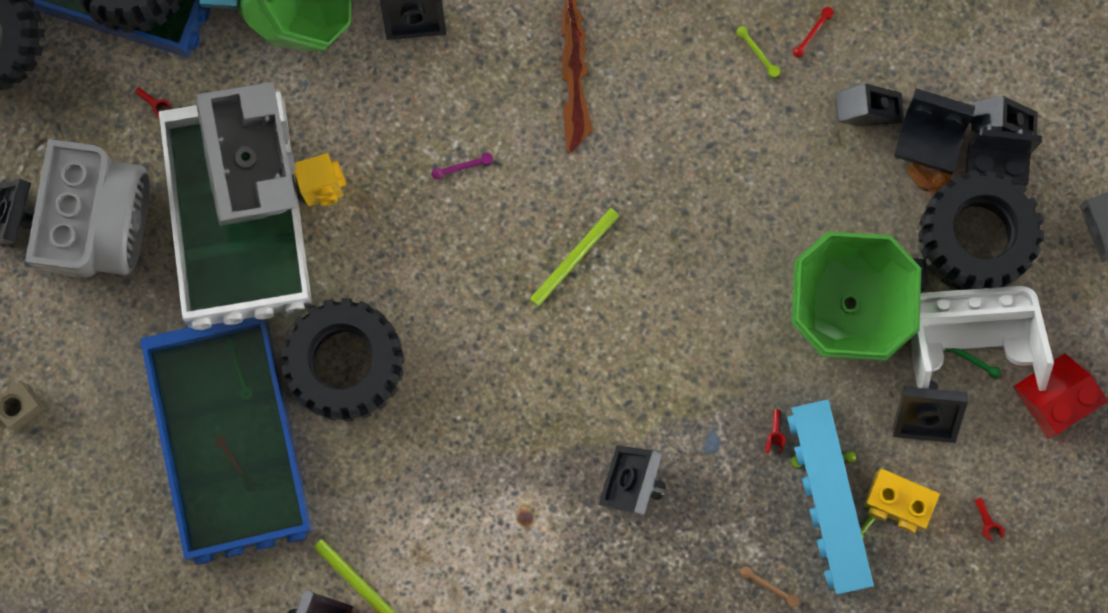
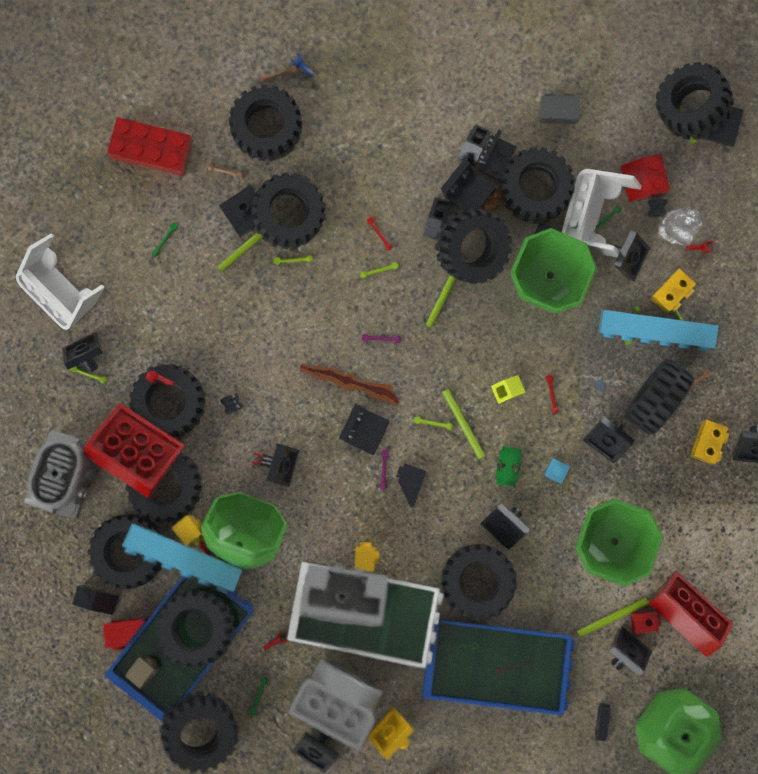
camera: 70 degrees left, 5 degrees up
(41, 108) = (253, 711): none -> green hinge
(71, 312) = (391, 733): none -> yellow tile
(443, 370) = (505, 525): none -> black tile
(444, 537) = (636, 542): none -> bright green rock
(455, 210) = (410, 482): none -> black slope
(510, 111) = (364, 429): none -> black bracket
(520, 347) = (507, 475): none -> green piece
(554, 189) = (417, 420): none -> lime hinge
(554, 422) = (556, 471): none -> medium azure plate
(649, 69) = (365, 338): none -> magenta hinge
(651, 301) = (508, 389): none -> neon yellow brick
(692, 362) = (549, 378): none -> red hinge
(725, 527) = (659, 397): none -> black tyre
(763, 159) = (441, 300): none -> lime bar
(776, 436) = (610, 347): red hand -> none
(844, 206) = (495, 251): none -> black tyre
(1007, 474) = (680, 226): none -> clear helmet
(1021, 430) = (657, 208): none -> black wheel

